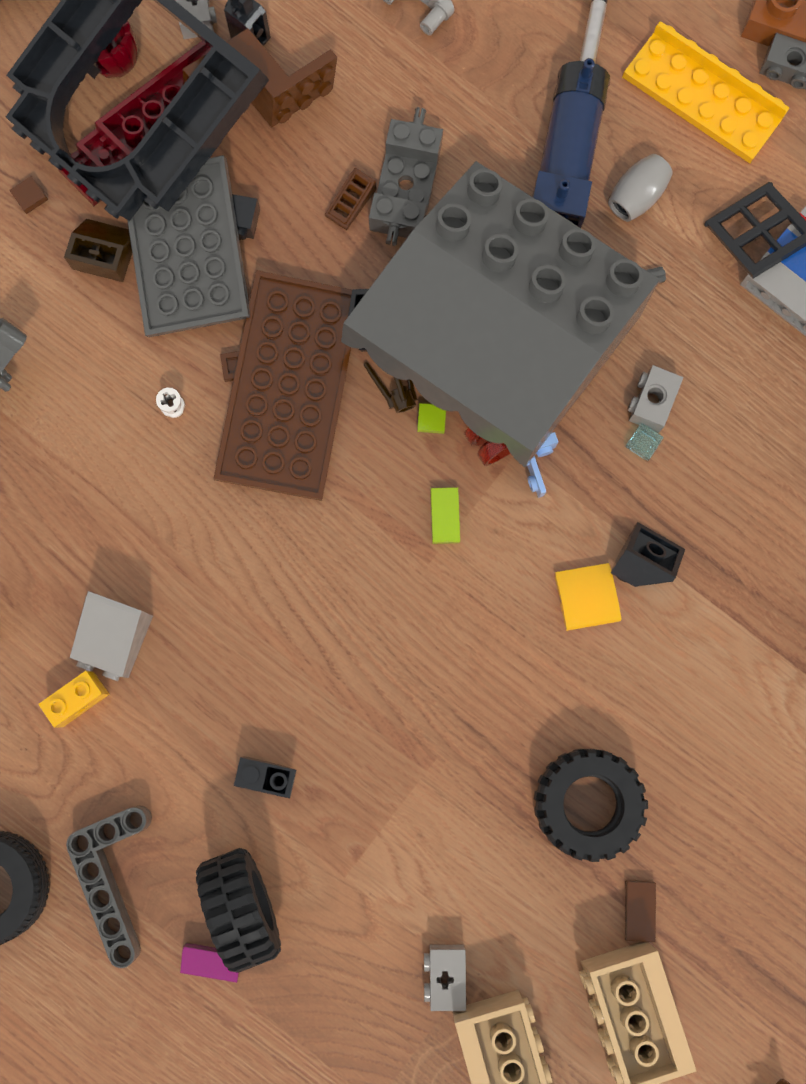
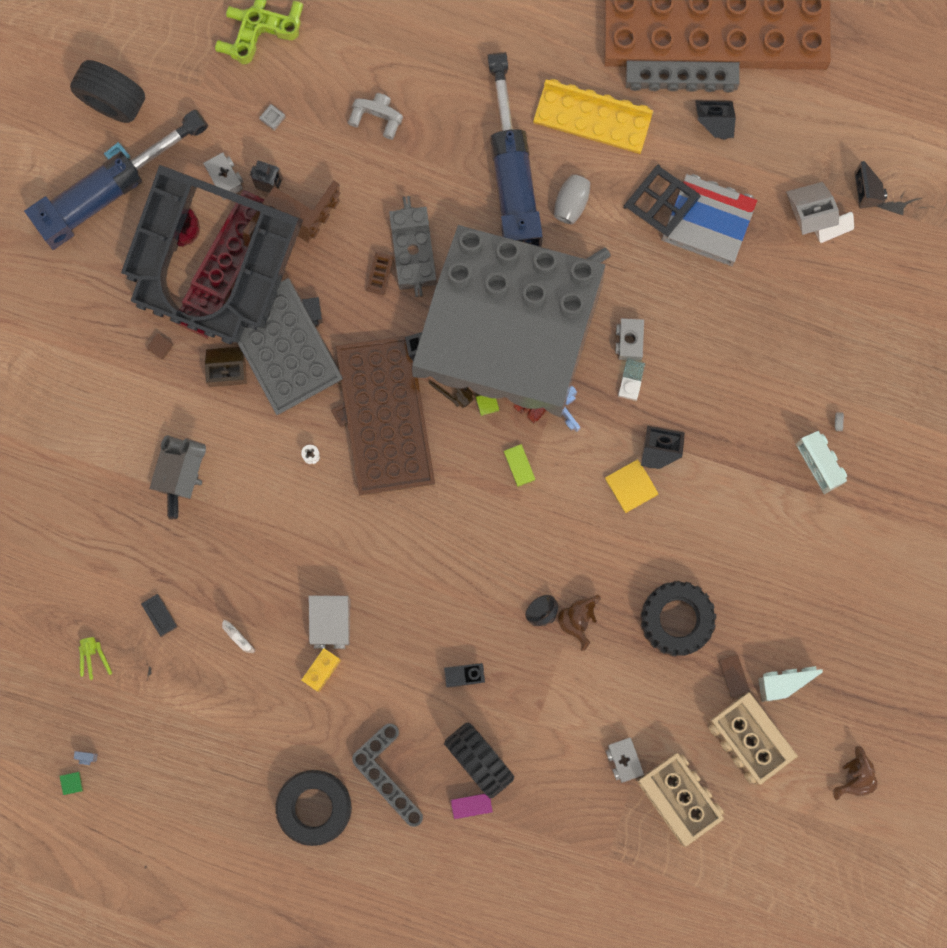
camera: 15 degrees left, 0 degrees up
(402, 721) = (540, 608): none -> black piece
(448, 752) = (576, 618): none -> reddish brown piece
(630, 464) = (629, 389): none -> white plate
(713, 953) = (782, 686): none -> light aqua slope

